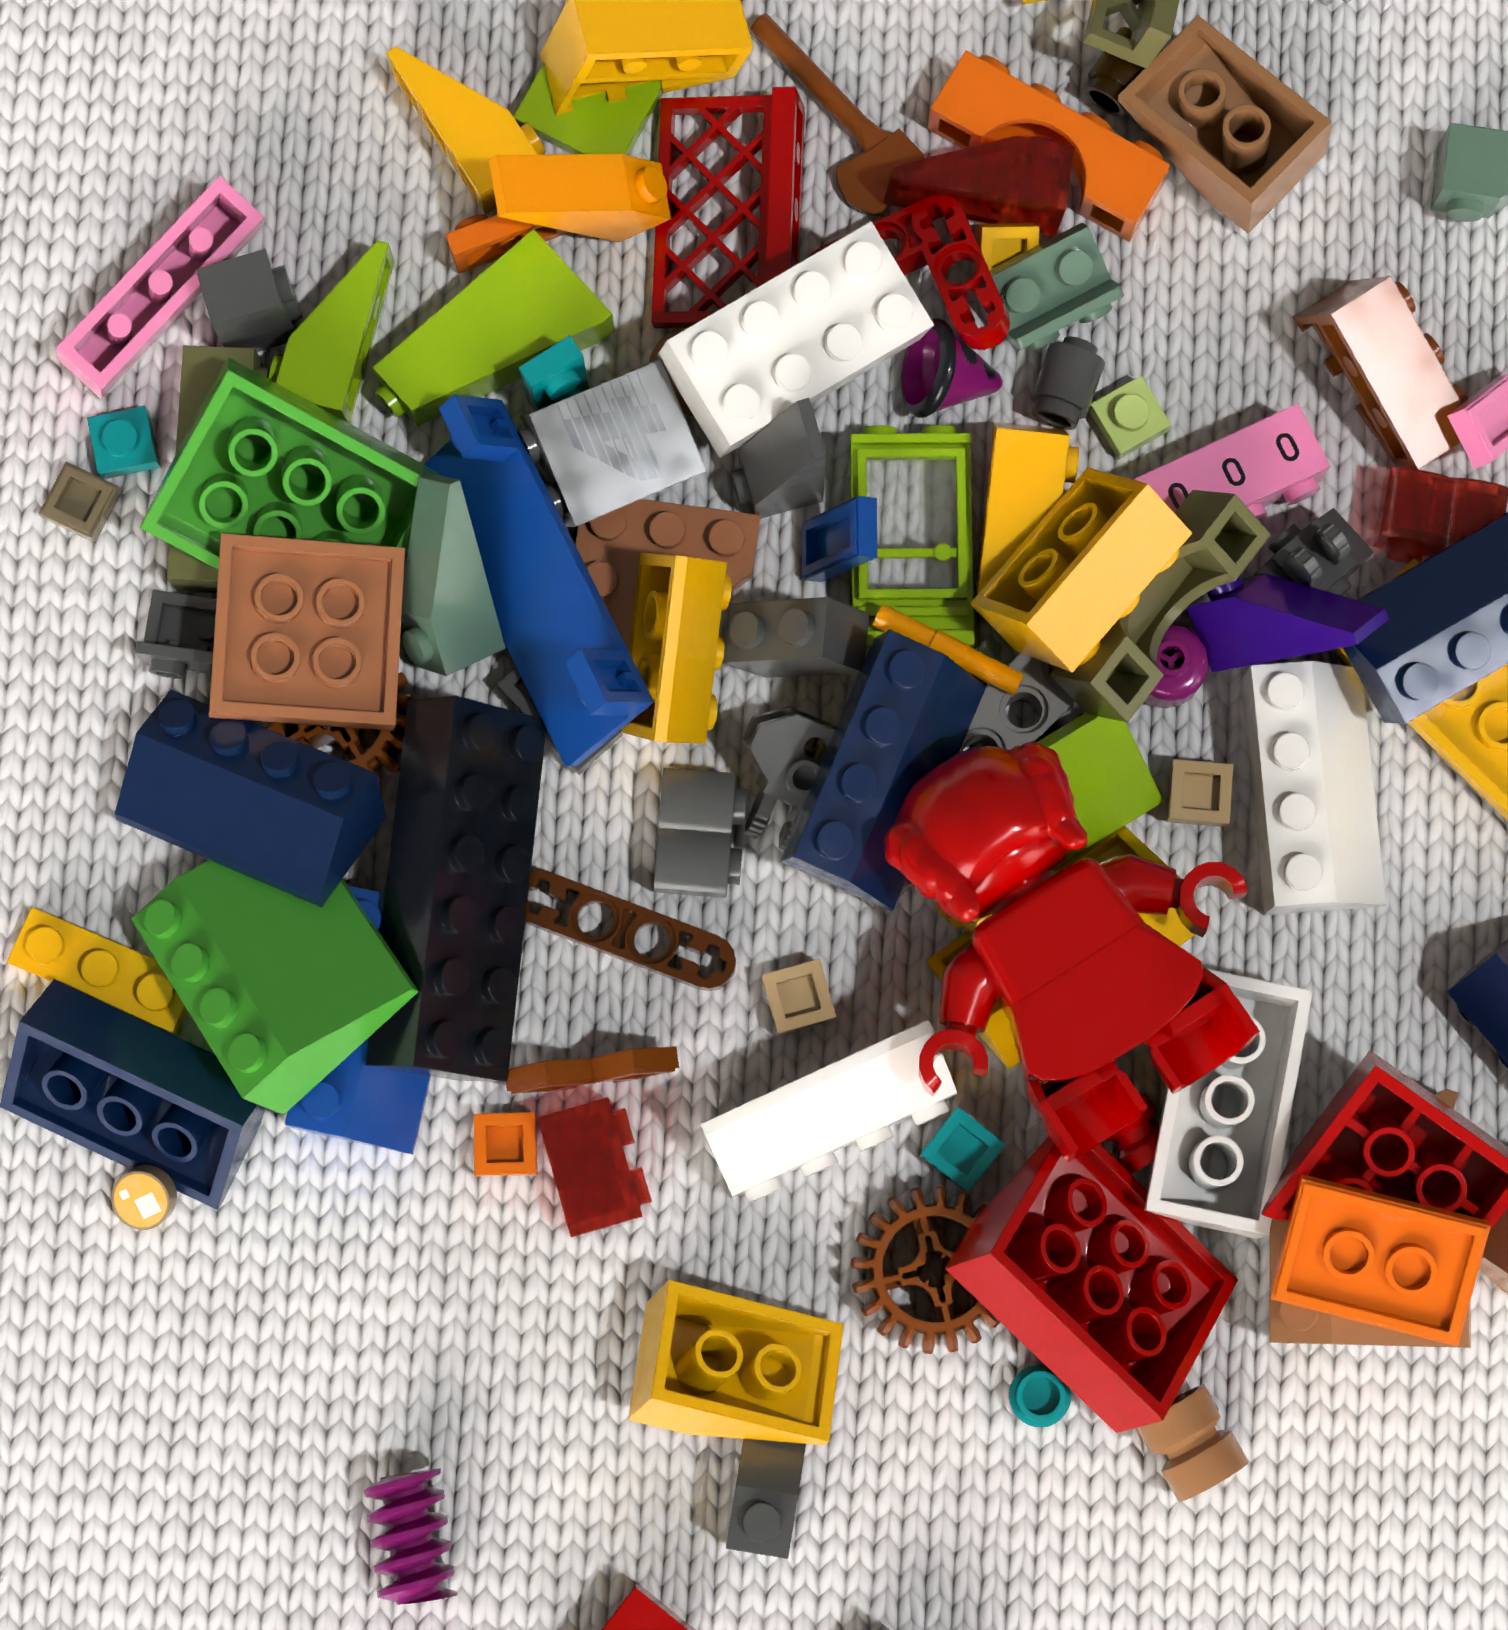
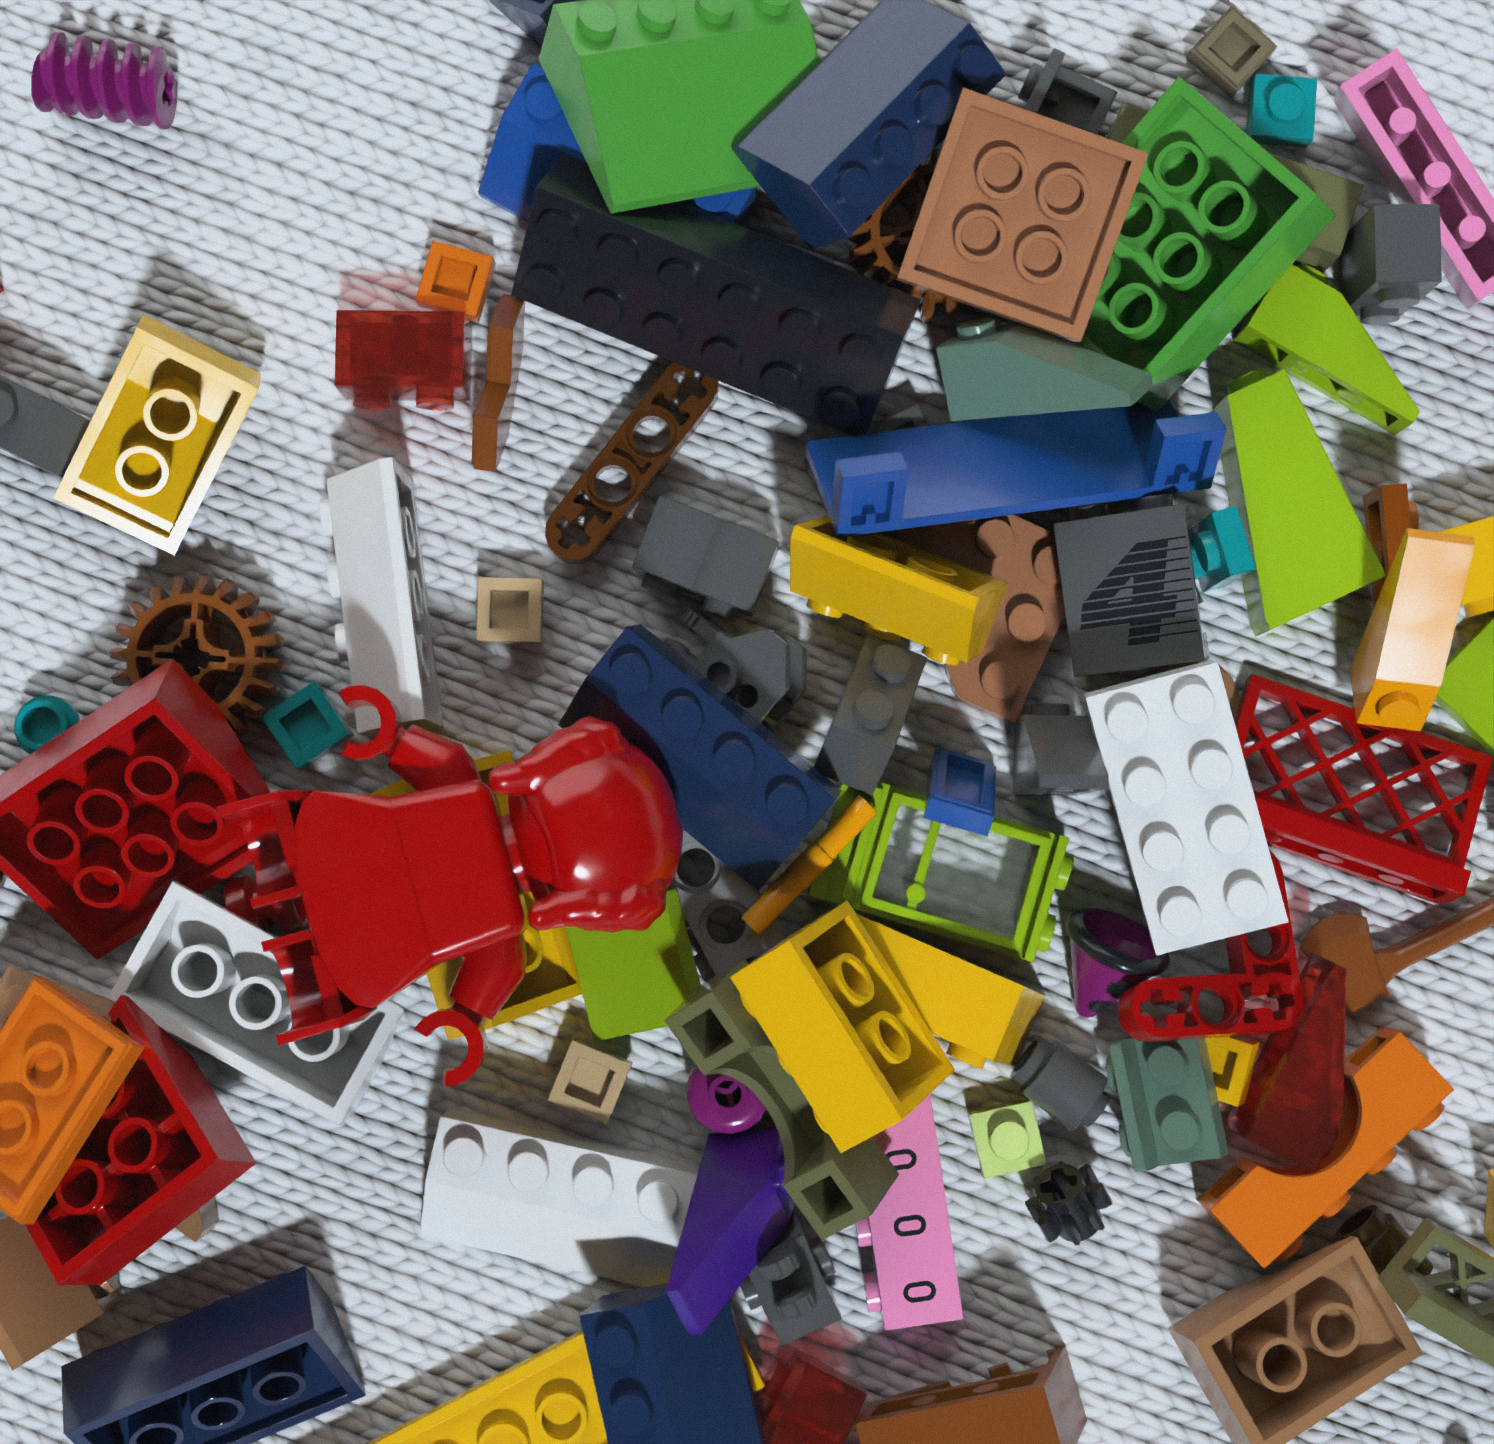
camera: 105 degrees right, 5 degrees up
(1168, 345) = (1068, 1203): none -> black gear

